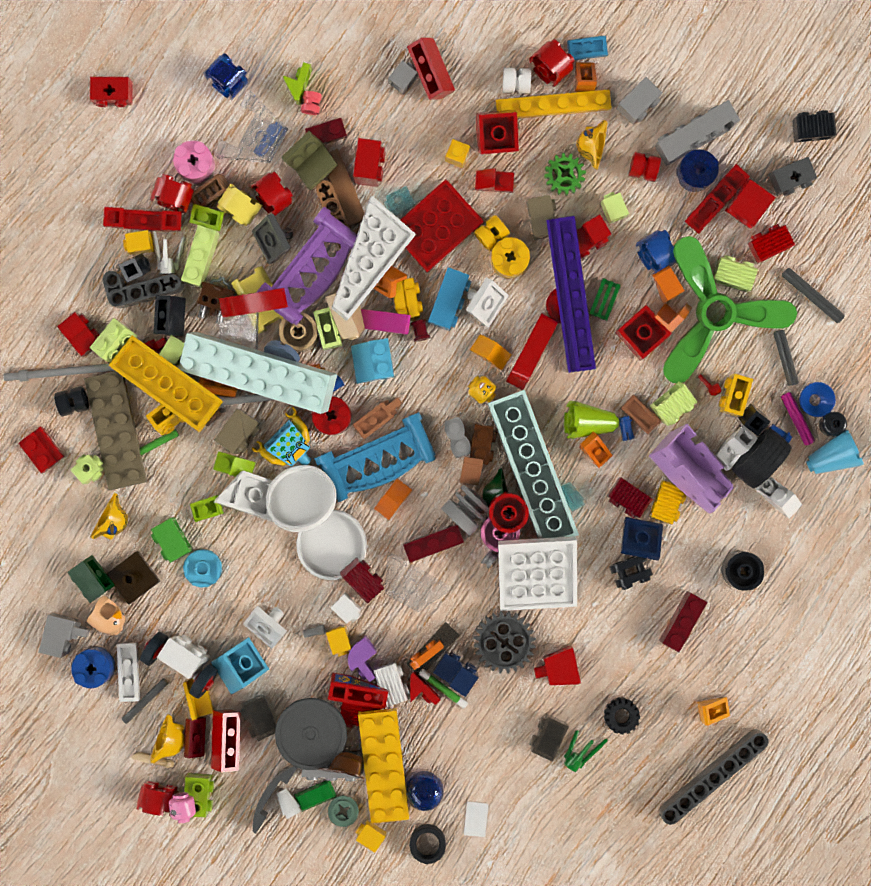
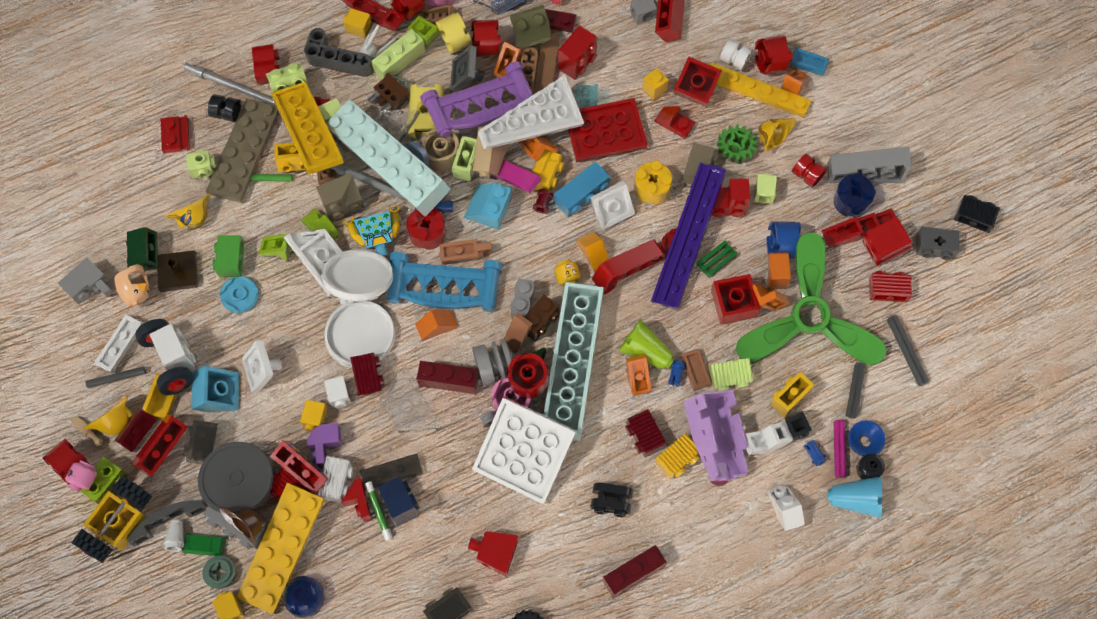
camera: 25 degrees right, 20 degrees down
(82, 670) = (92, 322): blue brick -> none
(135, 267) = (341, 36): black brick -> none
(169, 315) = (345, 83): black brick -> none
(218, 388) = (350, 159): orange plate -> none
(231, 824) = (113, 520): none -> brick
(253, 302) = (417, 98): red slope -> none
(306, 207) = (507, 56): none -> orange slope
(319, 630) = (301, 399): light grey piece -> none
(420, 658) = (374, 469): orange plate -> none
(486, 237) = (642, 153): yellow wheel -> none
(515, 628) = (442, 505): dark grey gear -> none
(572, 496) = (594, 407): clear light blue cone -> none
(639, 101) = (832, 118): light grey brick -> none
(642, 538) = (637, 474): dark blue plate -> none
(712, 389) = (774, 383): red hand -> none
(735, 274) = (844, 295): yellowish green brick -> none
(752, 566) = (722, 544): black brick -> none
(762, 458) = (786, 456): black tyre -> none

